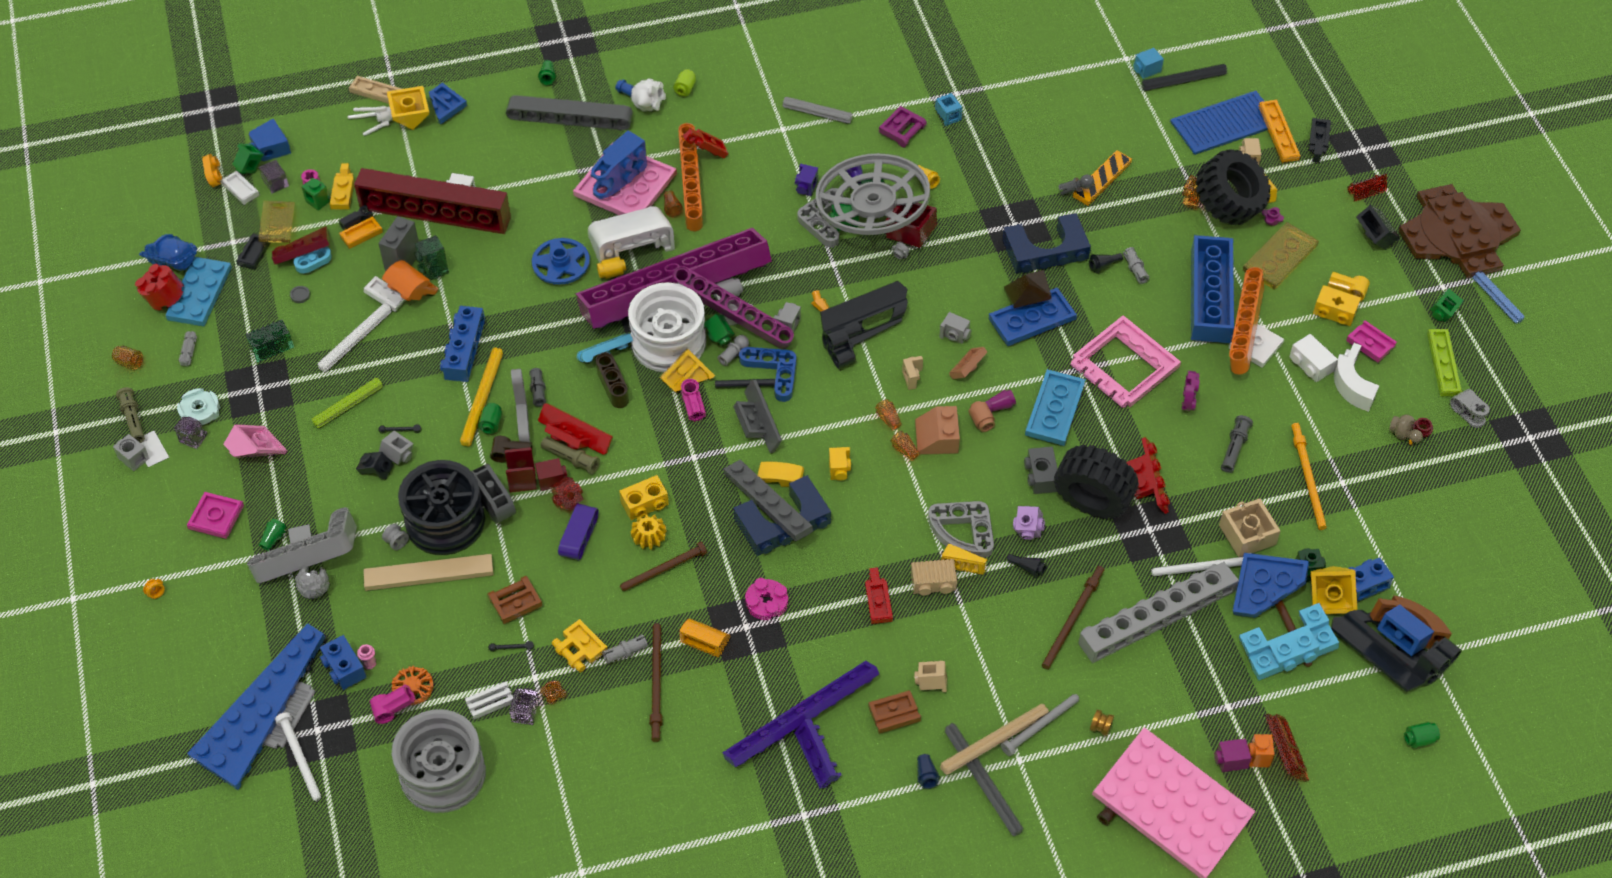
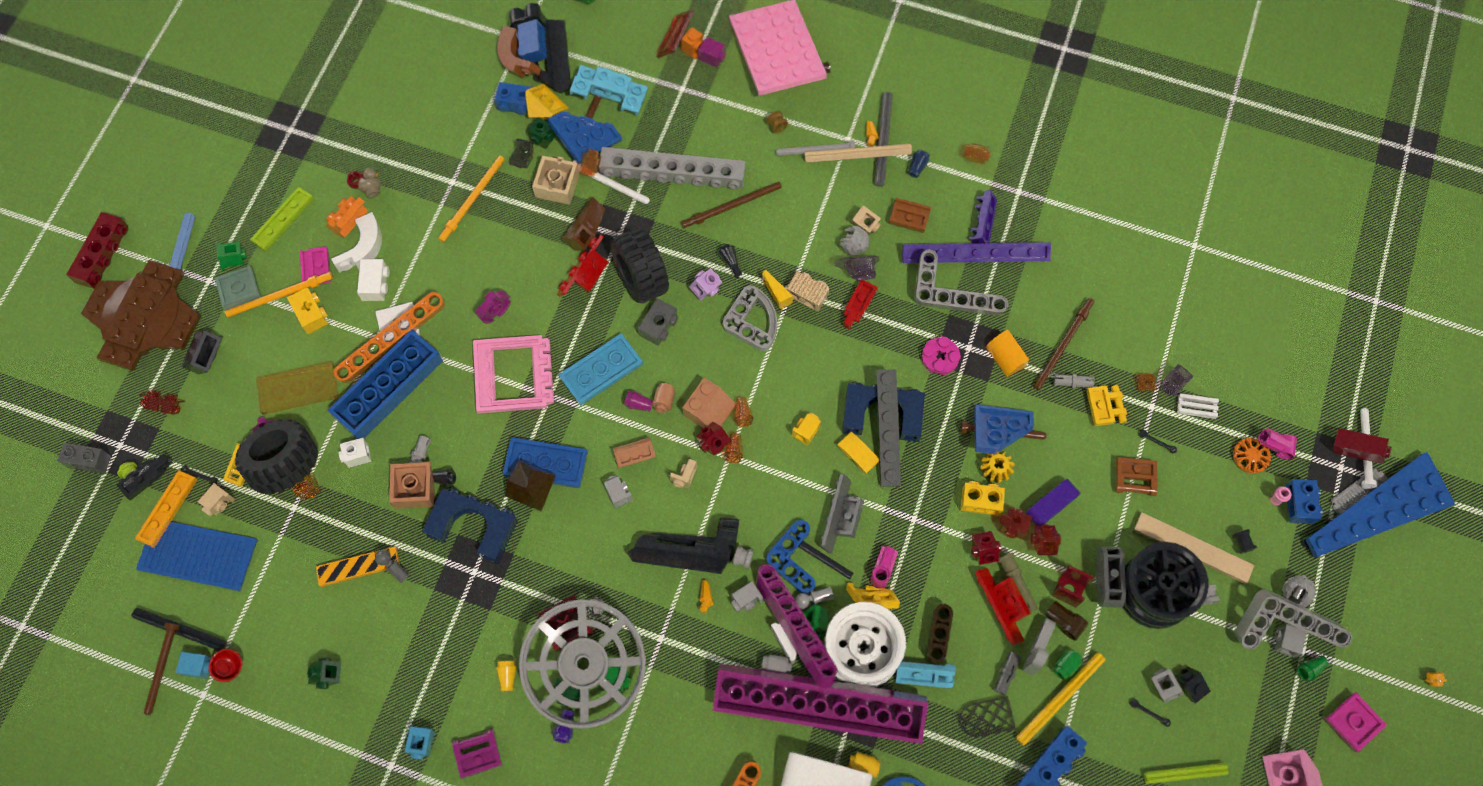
camera: 145 degrees left, 15 degrees up
(306, 743) = (1362, 446): none -> dark red brick
(383, 600) = (1244, 541): none -> black bush
(437, 737) = (1274, 348): light grey wheel -> none
(510, 358) = (1010, 713): none -> clear smoke window
(550, 472) = (1046, 572): dark red brick -> none
(601, 491) = (1015, 523): none -> clear red brick
(615, 457) = (985, 548): none -> dark red brick
(668, 558) = (999, 427): none -> blue plate
(793, 650) = (951, 295): none -> light grey beam
(806, 179) = (617, 746): dark purple brick -> none
(814, 343) = (743, 557): none -> light grey wheel
(816, 218) = (640, 699): light grey beam -> none
(875, 820) = (977, 153): none -> clear orange brick
(902, 623) = (859, 267): none -> piece
(911, 406) = (712, 439): none -> dark red brick
(924, 647) = (856, 241): none -> light grey piece
(1000, 777) = (871, 134): none -> light orange bar
(1054, 103) = (324, 673): none -> dark green brick
(1114, 234) = (411, 485): none -> nougat slope
(1127, 72) = (225, 665): none -> red hair
(1183, 237) = (355, 452): none -> white brick
(1183, 506) = (585, 226): none -> reddish brown slope
(1186, 68) = (149, 706): none -> reddish brown bar
(1233, 556) = (590, 162): none -> clear orange brick
(1238, 437) = (489, 255): dark grey pin -> none
(1268, 165) = (212, 480): none -> black hinge
(1304, 535) = (522, 154): none -> clear smoke bracket
(1335, 133) = (126, 468): none -> lime plate
(1356, 286) = (277, 319): yellow piece -> none
(1356, 321) = (312, 282): none -> light orange bar
(1373, 121) = (84, 458): none -> dark grey brick
(1392, 389) = (344, 219): none -> orange brick
(1411, 290) = (237, 287): none -> sand green plate
(1469, 405) = (307, 169): light grey piece -> none
(1550, 248) = (97, 241): none -> dark red brick

